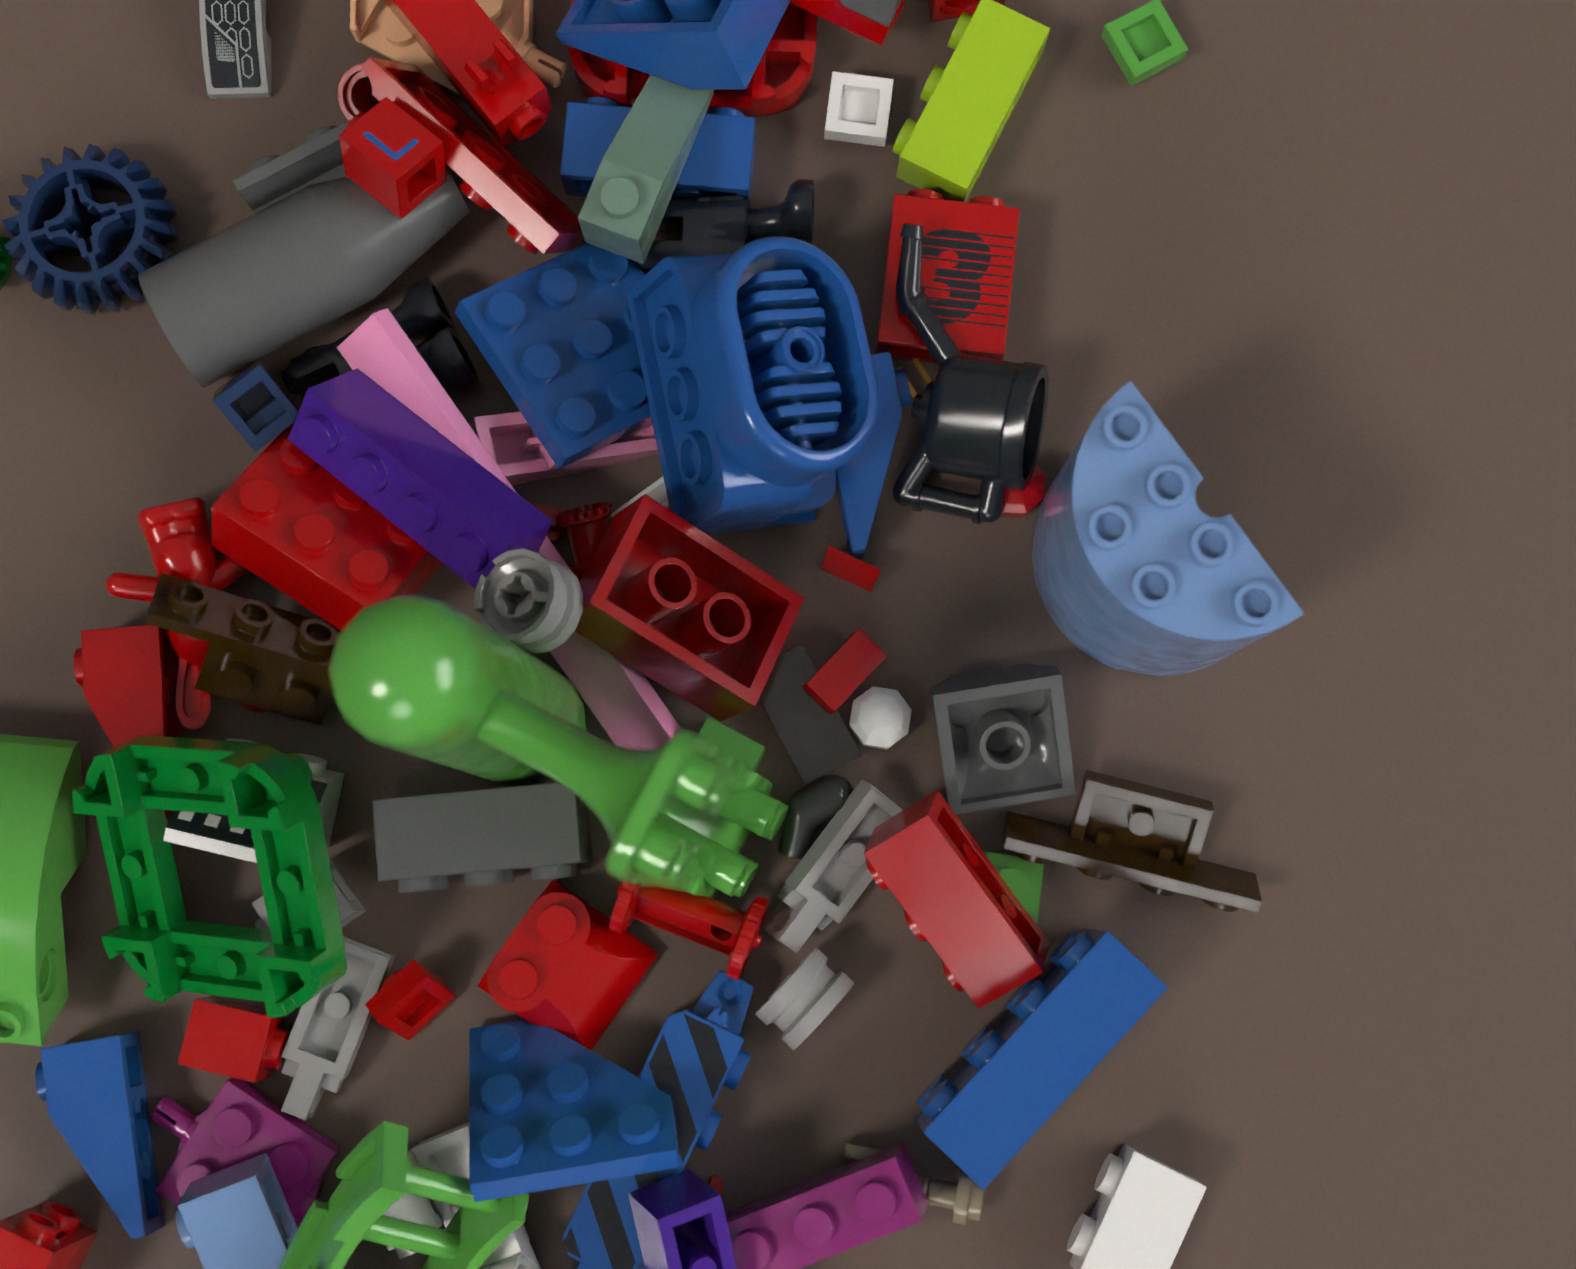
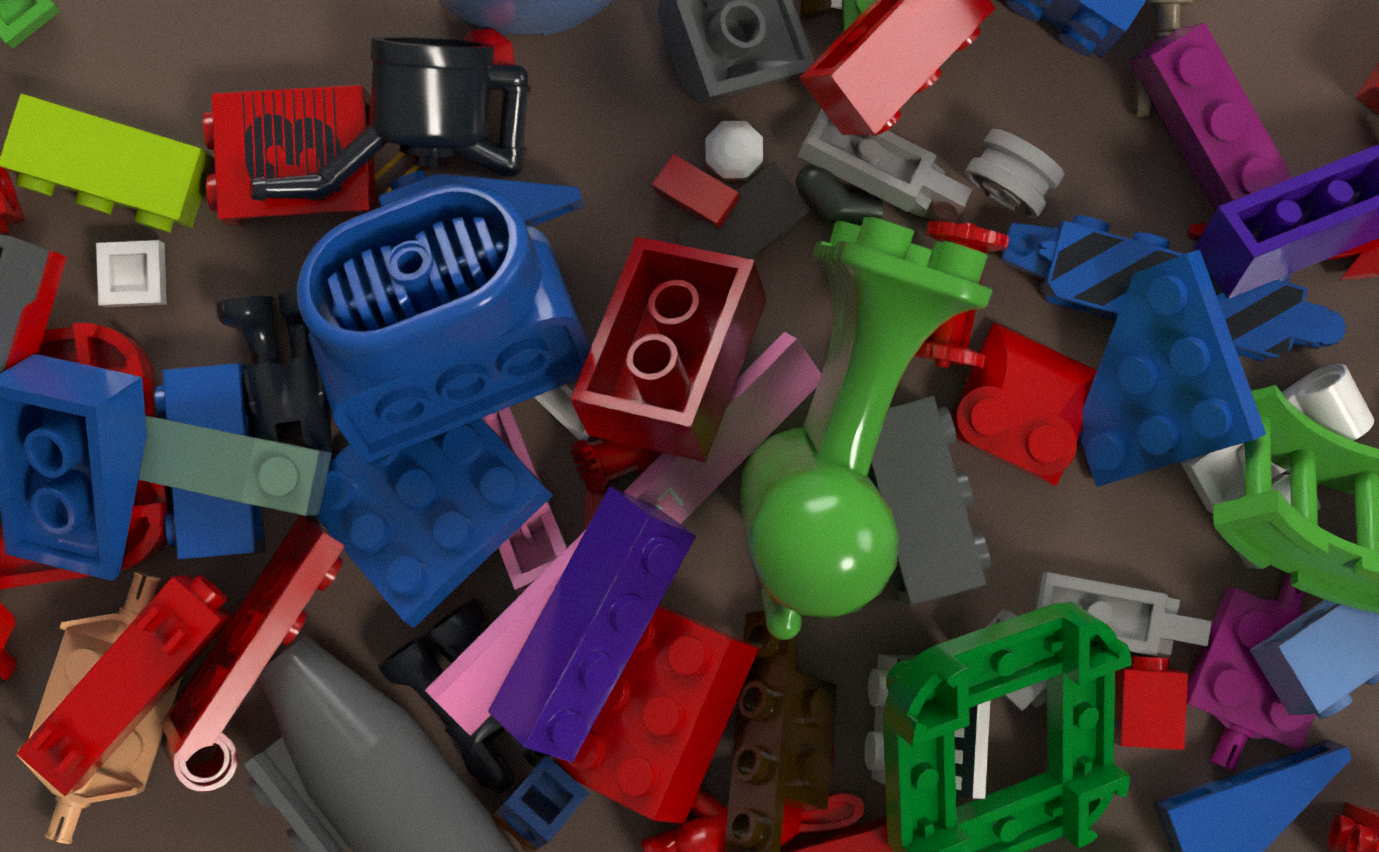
camera: 100 degrees left, 5 degrees up
(393, 157) = (273, 712): red brick -> none
(410, 999) = (1081, 546): red plate -> none
(548, 615) = (722, 476): light grey wheel -> none
(732, 743) = (791, 287): bright green plate -> none
(850, 569) = (595, 202): red sticker -> none

